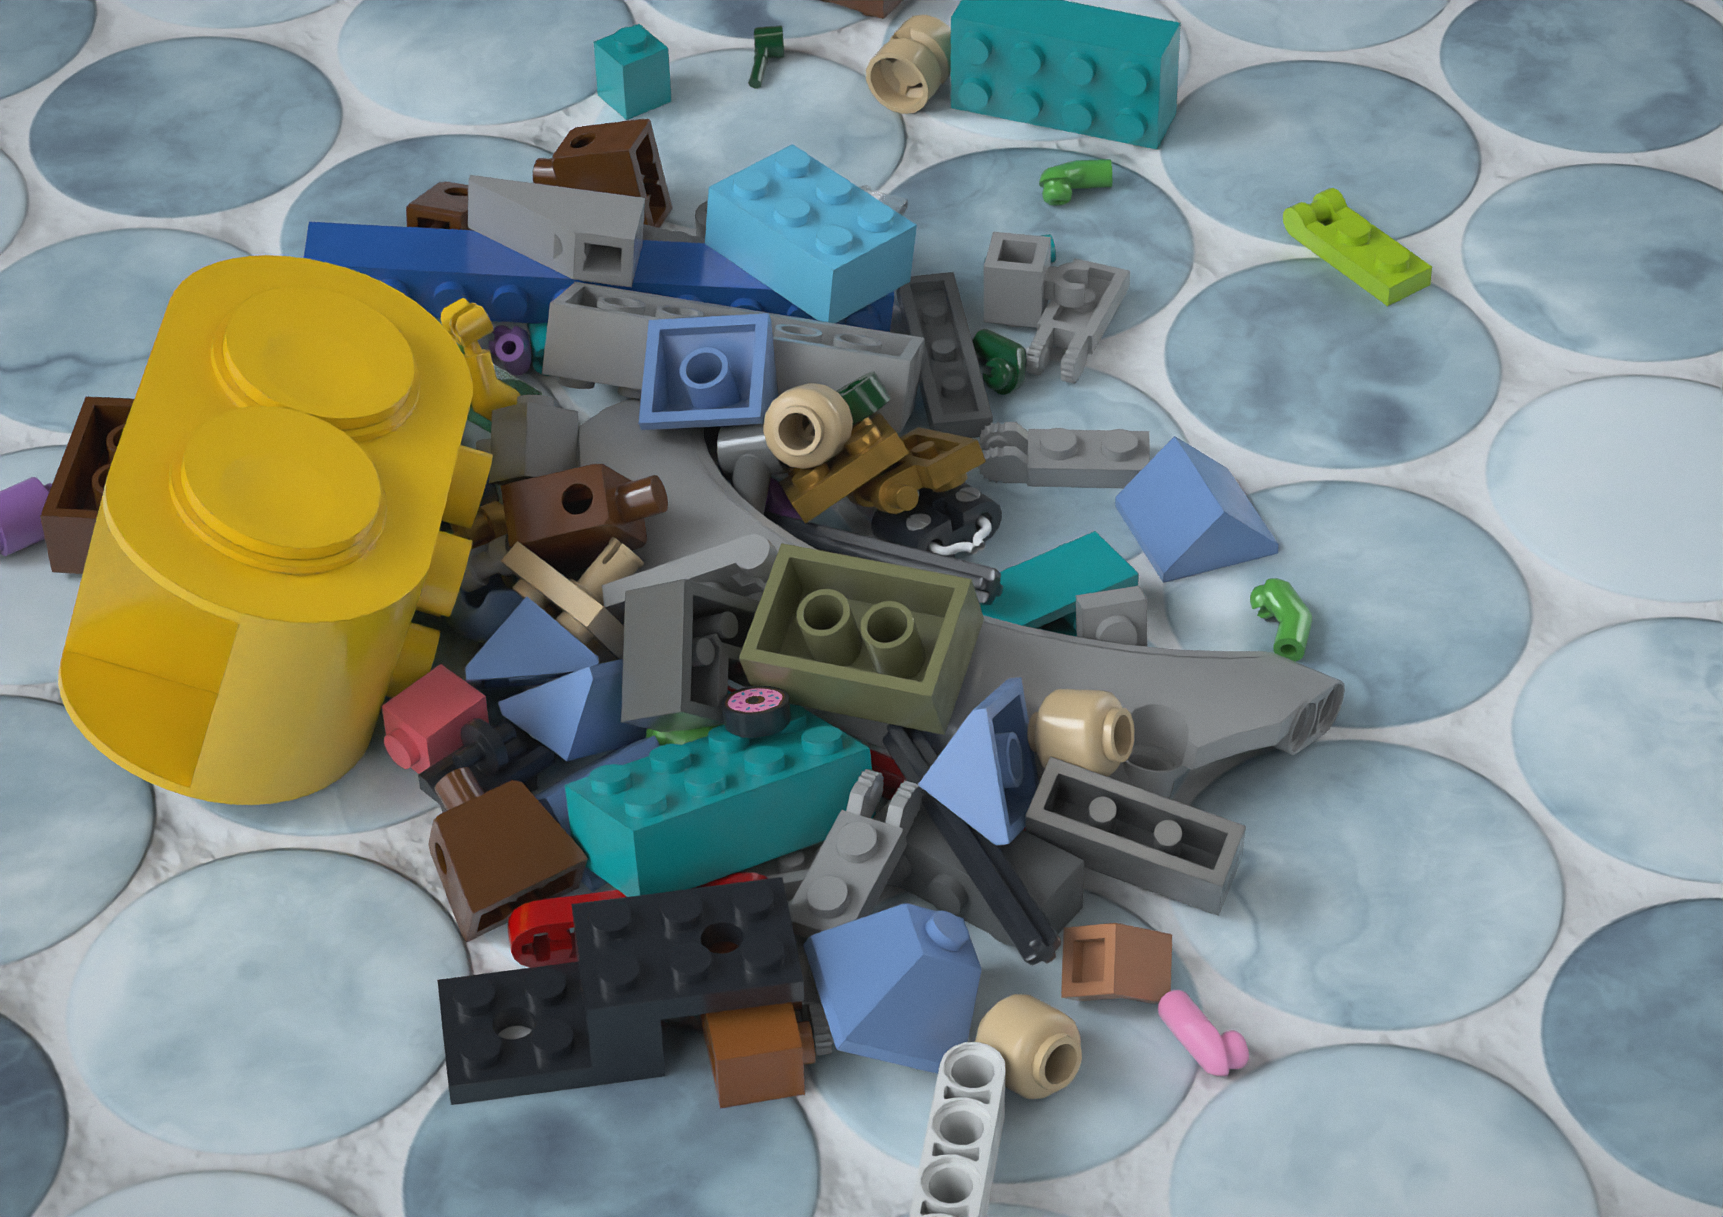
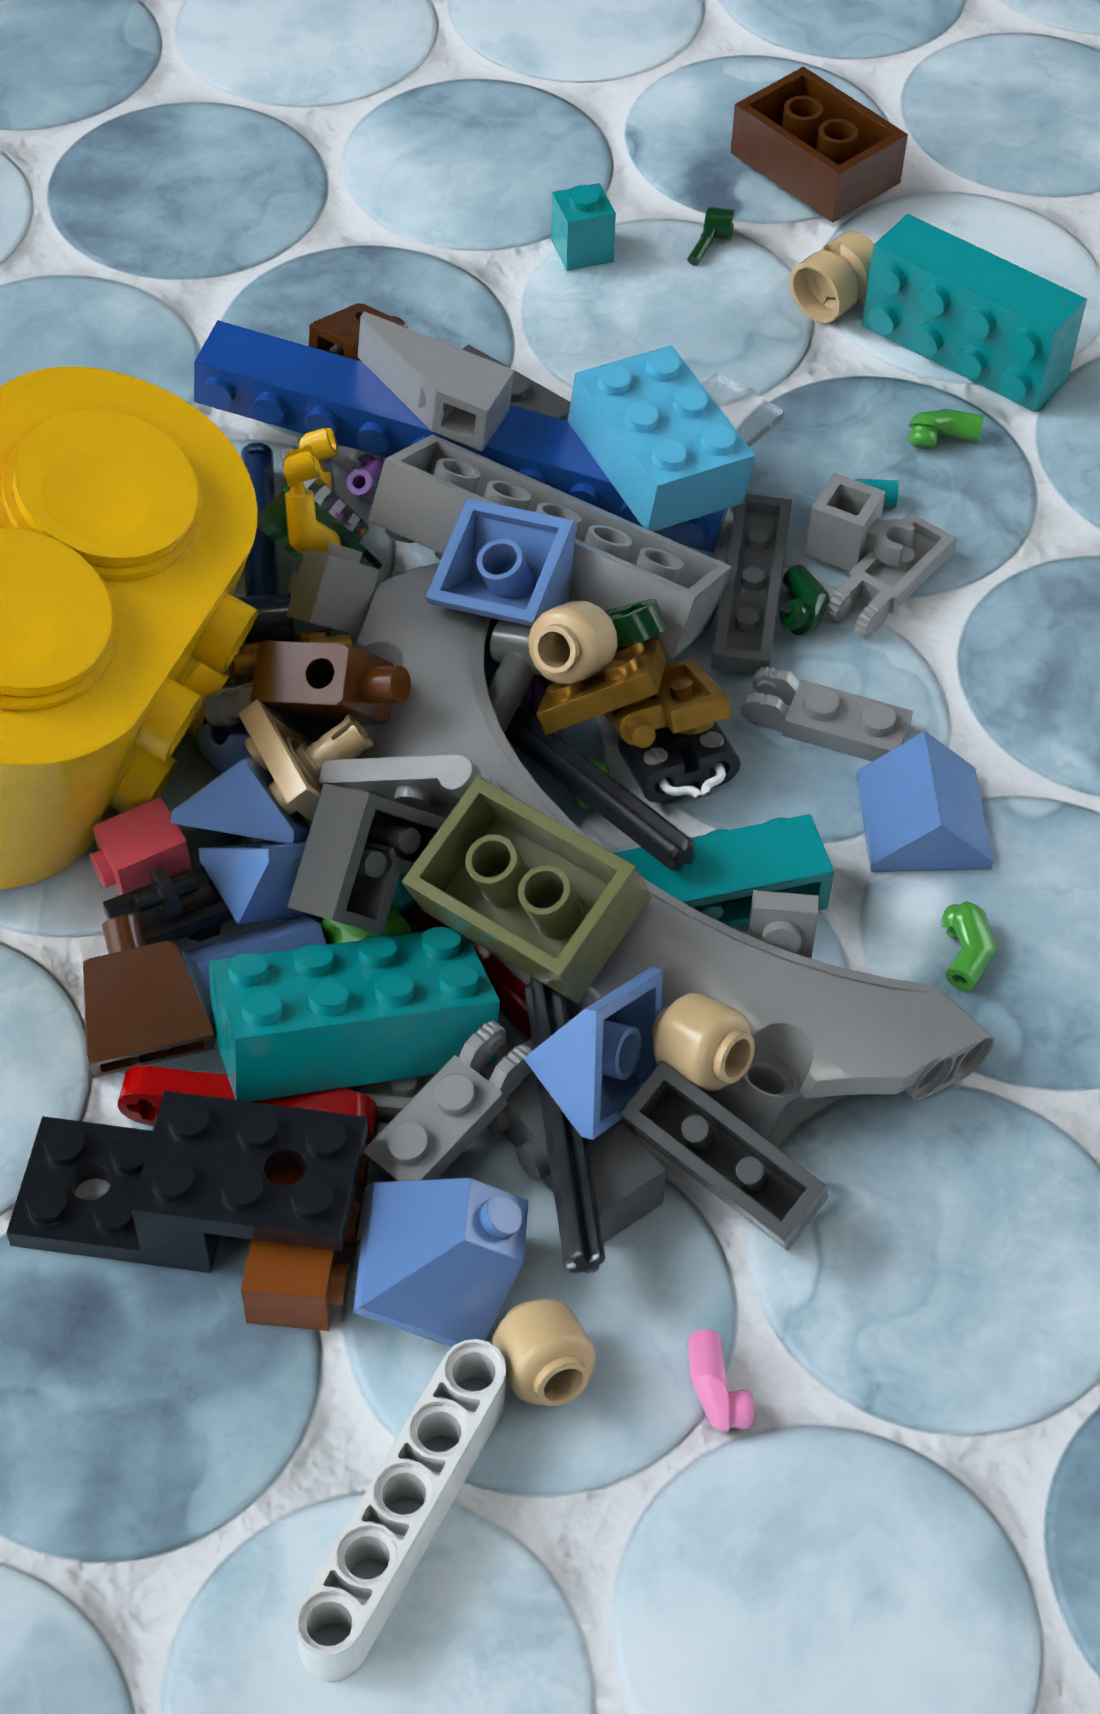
camera: 15 degrees right, 10 degrees up
(611, 160) = (519, 326): reddish brown torso -> none
(756, 711) = (409, 933): black tile -> none
(1115, 963) = (662, 1285): nougat panel -> none

